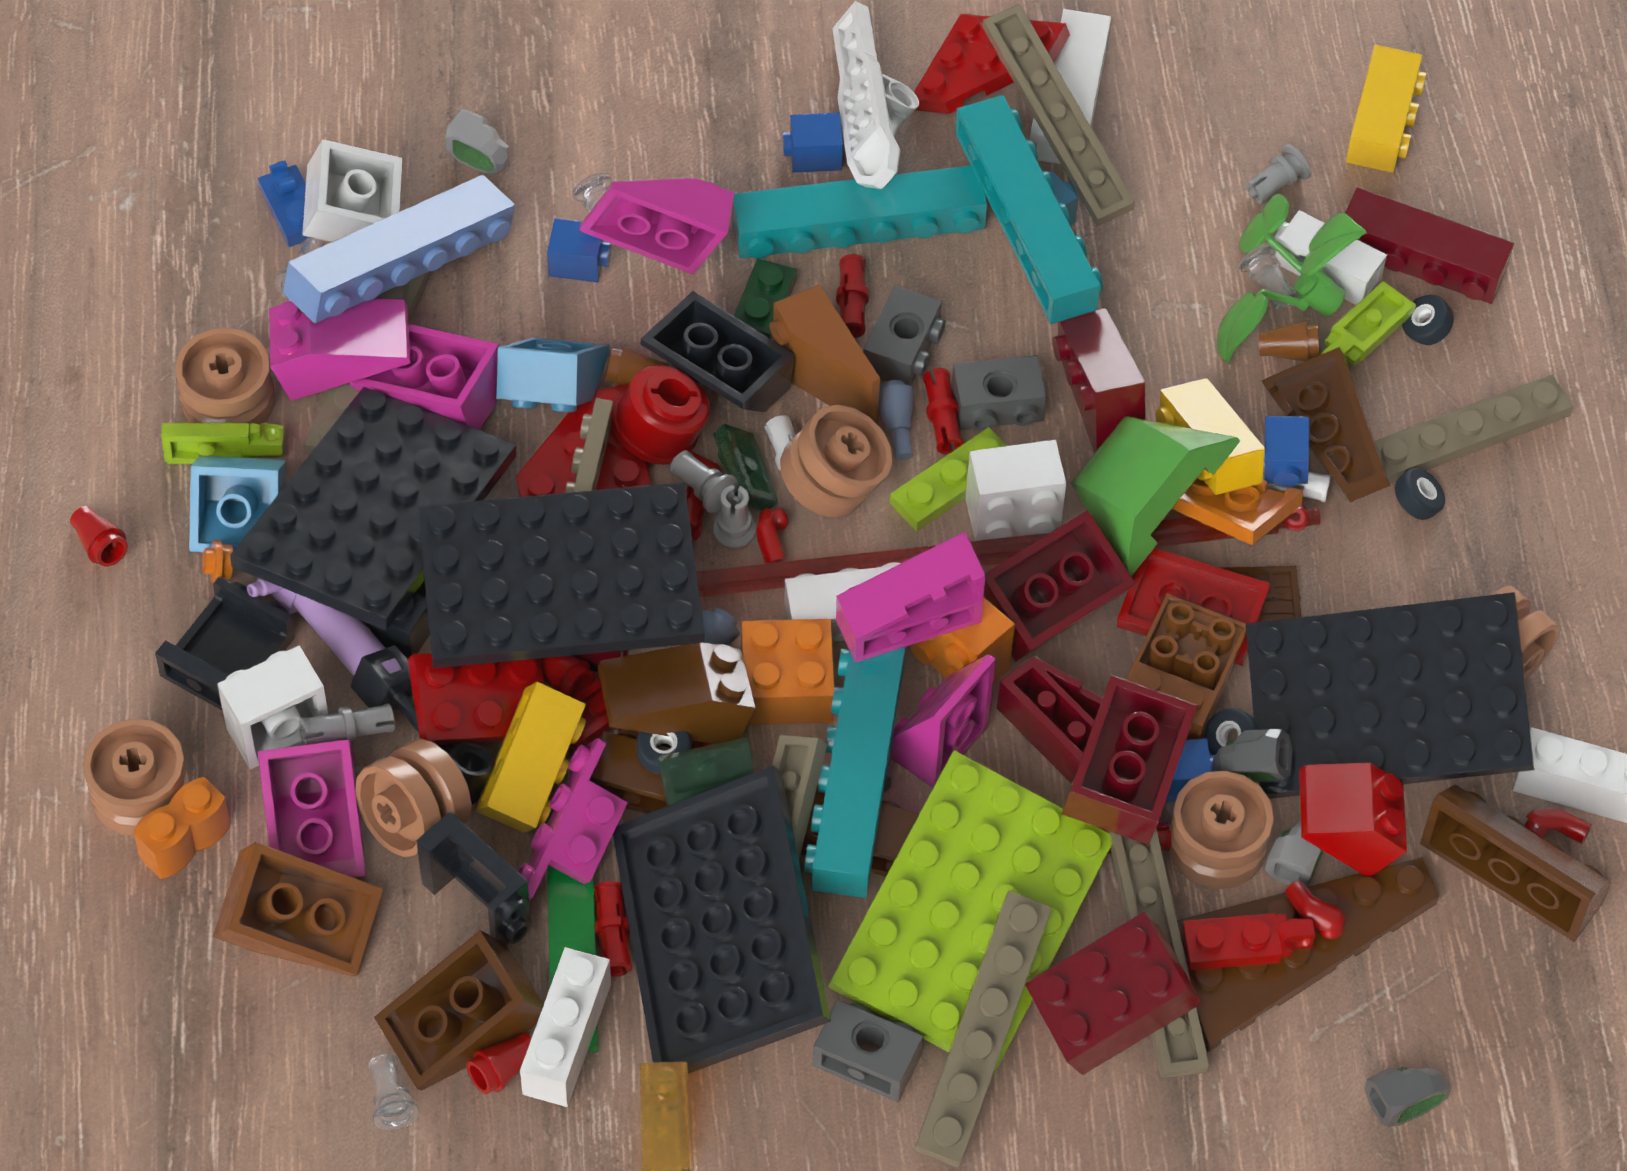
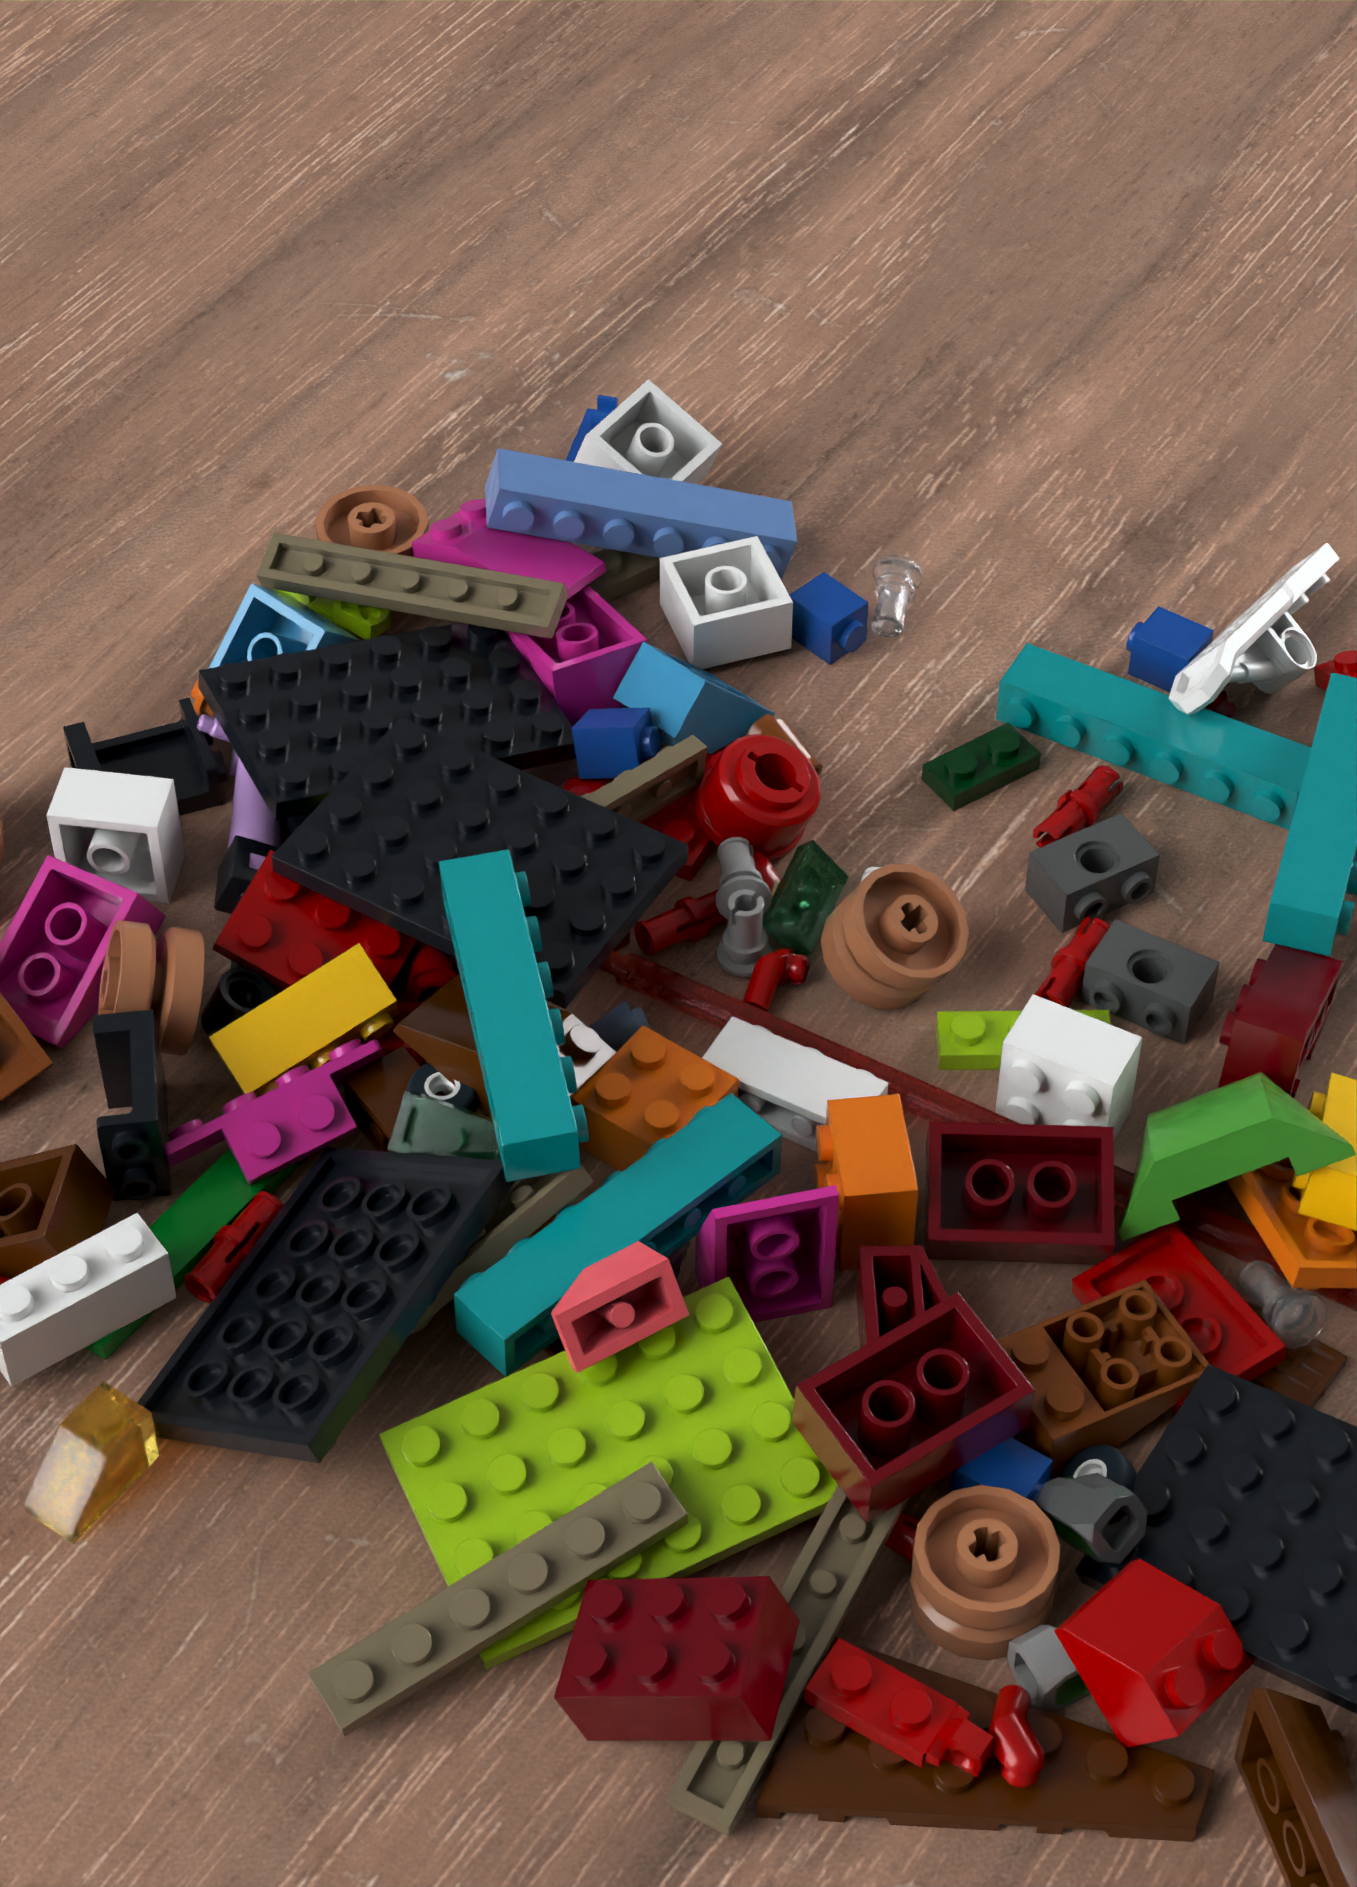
camera: 40 degrees right, 10 degrees down
(101, 539) = (133, 617): red cone -> none
(303, 400) = (413, 585): none -> dark tan plate
(346, 724) = (169, 891): light grey pin -> none
(476, 143) = (821, 478): light grey rock -> none
(506, 280) = (726, 603): none -> white brick
(535, 431) = (614, 741): none -> blue brick
(663, 219) = (923, 617): dark pink slope -> none
(699, 668) = (510, 1016): none -> teal brick
(722, 353) = (871, 778): black slope -> none
(826, 354) = (977, 829): dark orange slope -> none
(879, 1071) = (368, 1574): dark grey brick -> none
(896, 412) = (1023, 933): sand blue cone -> none
(913, 600) = (810, 1088): dark pink wedge -> none
(918, 806) = (617, 1304): none -> coral slope
(1244, 557) = (1288, 1311): none -> clear pin

